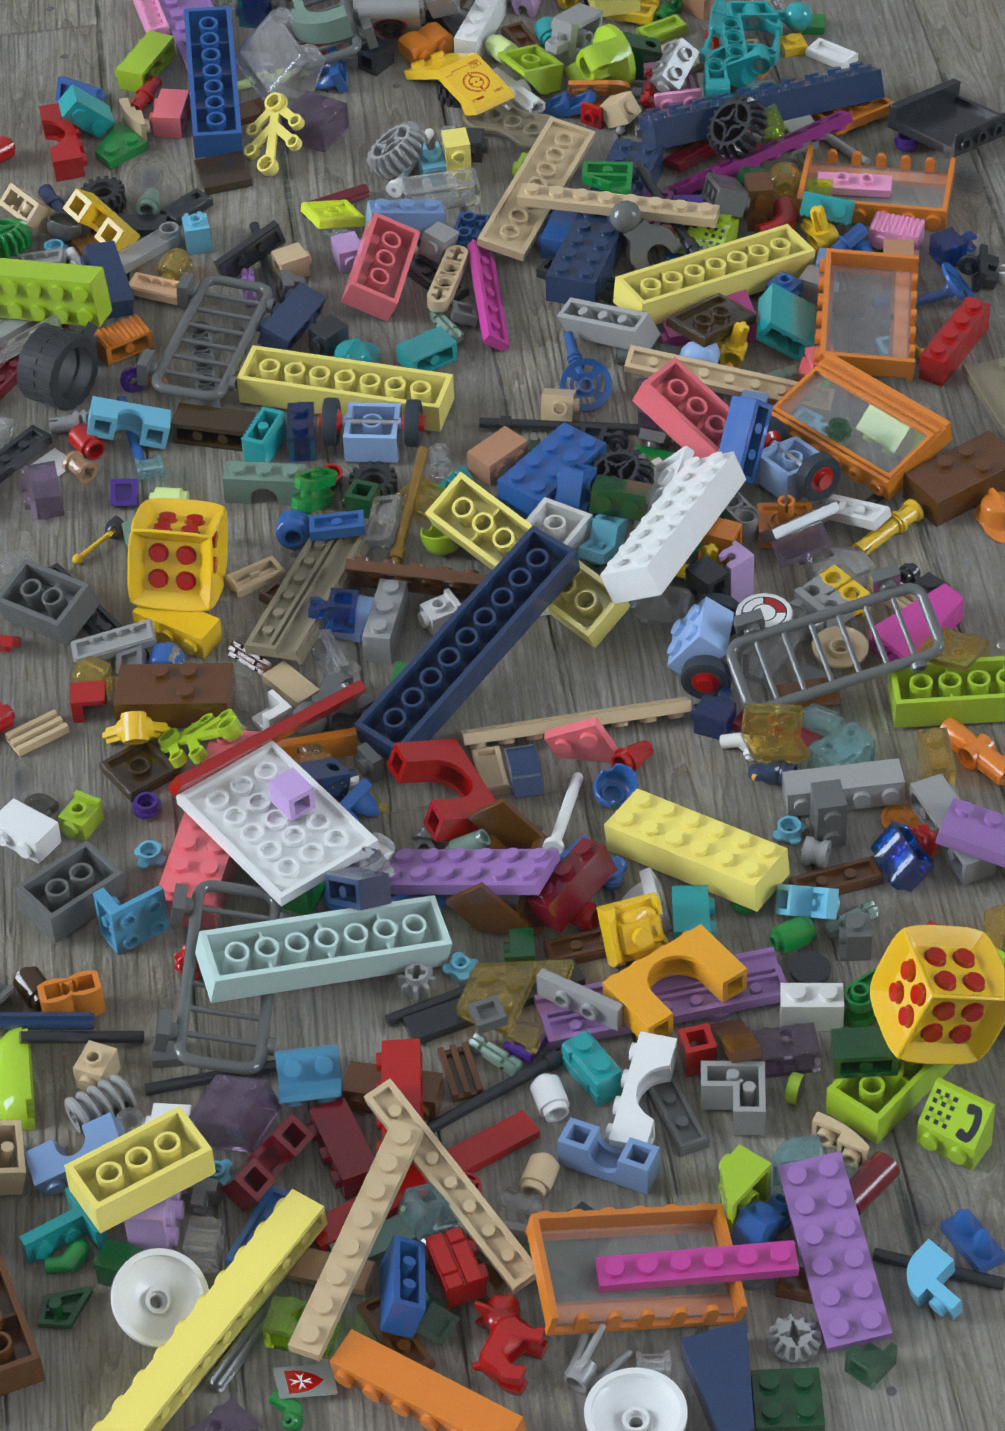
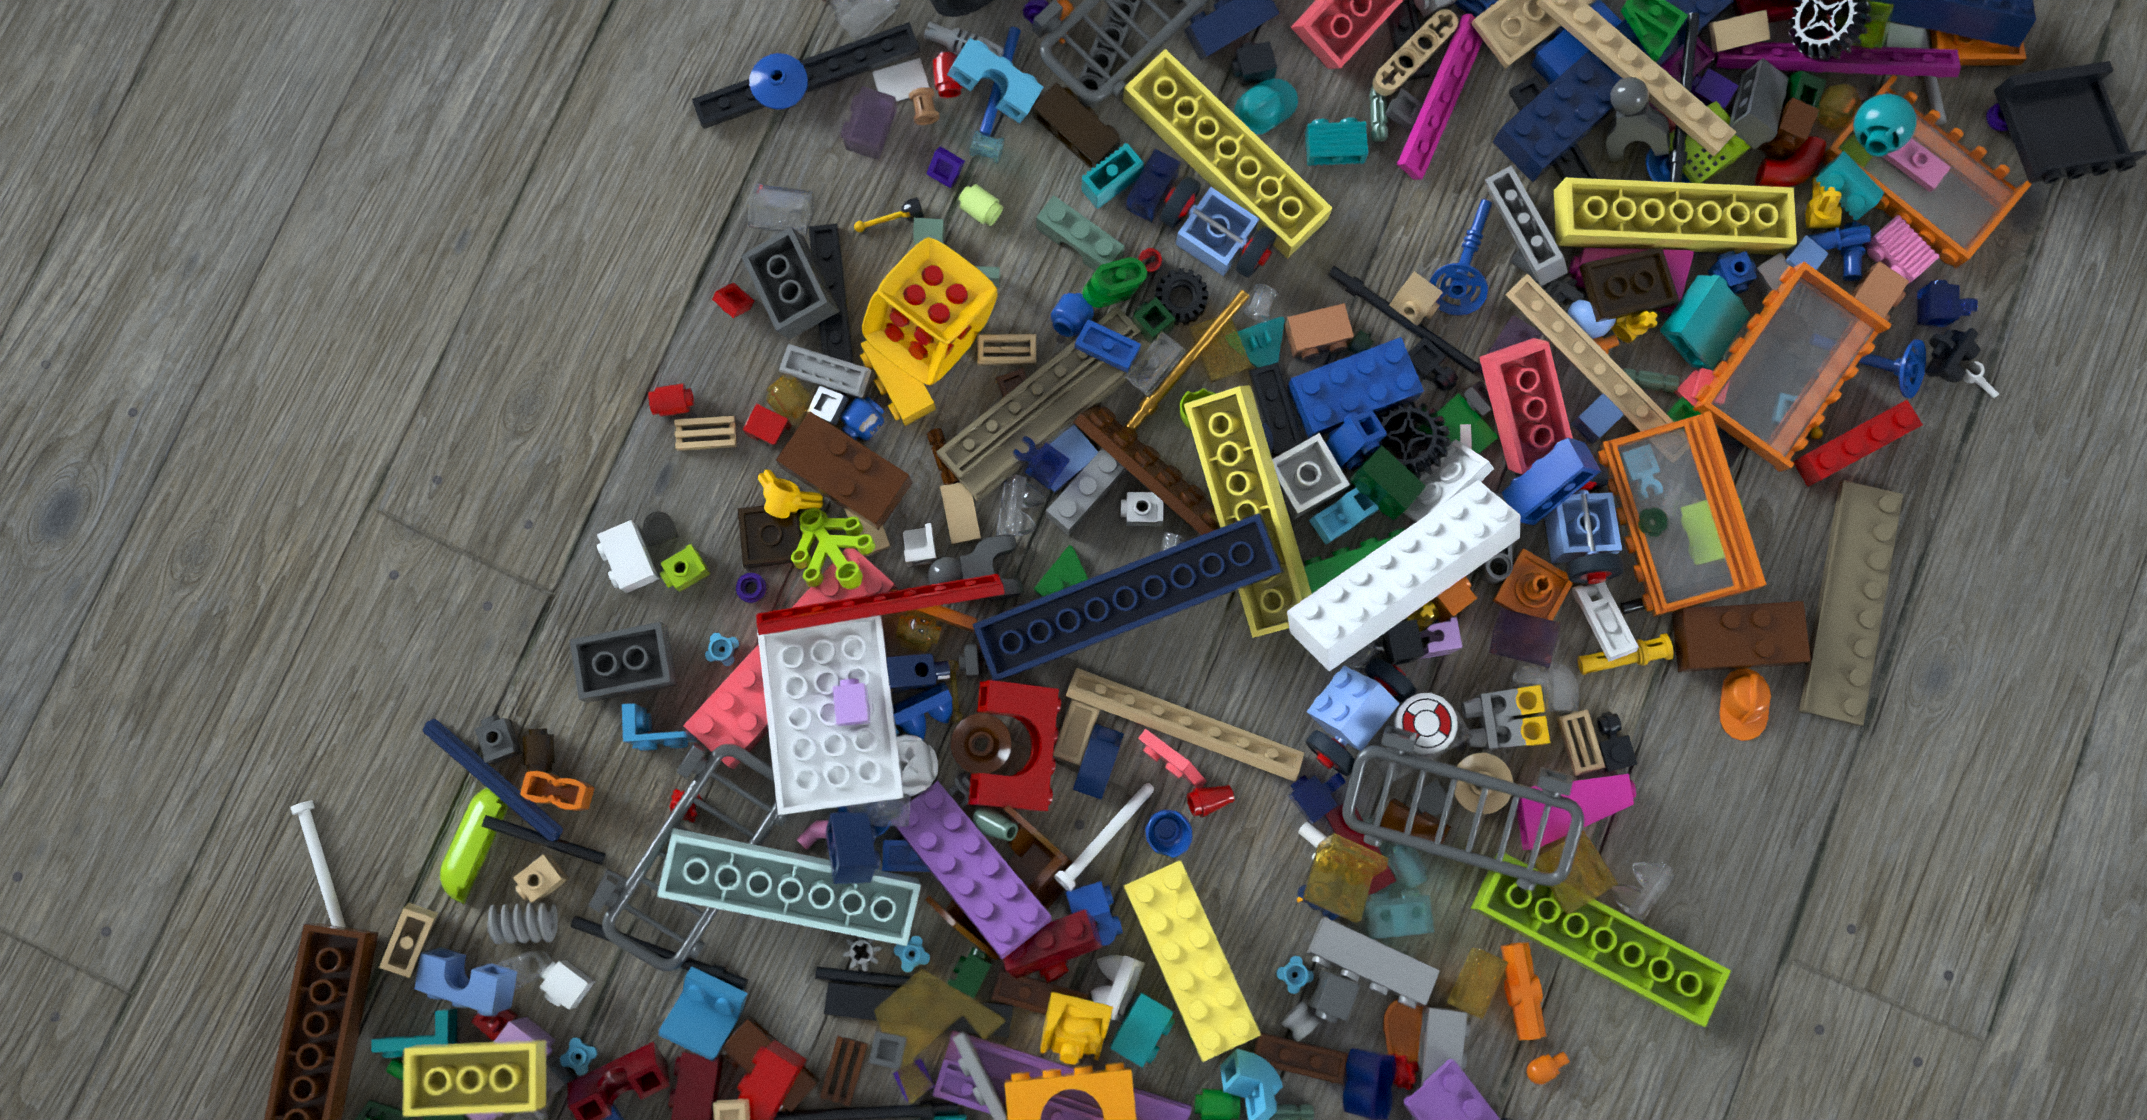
camera: 25 degrees right, 35 degrees up
(235, 1112) = (619, 1013): clear purple brick -> none
(410, 804) = (969, 732): none -> reddish brown dish
(495, 1054) = (886, 1081): sand green axle -> none
(679, 168) = (1739, 31): none -> tan tile
(799, 522) = (1541, 610): tile -> none
(822, 163) = (1884, 124): none -> teal brick

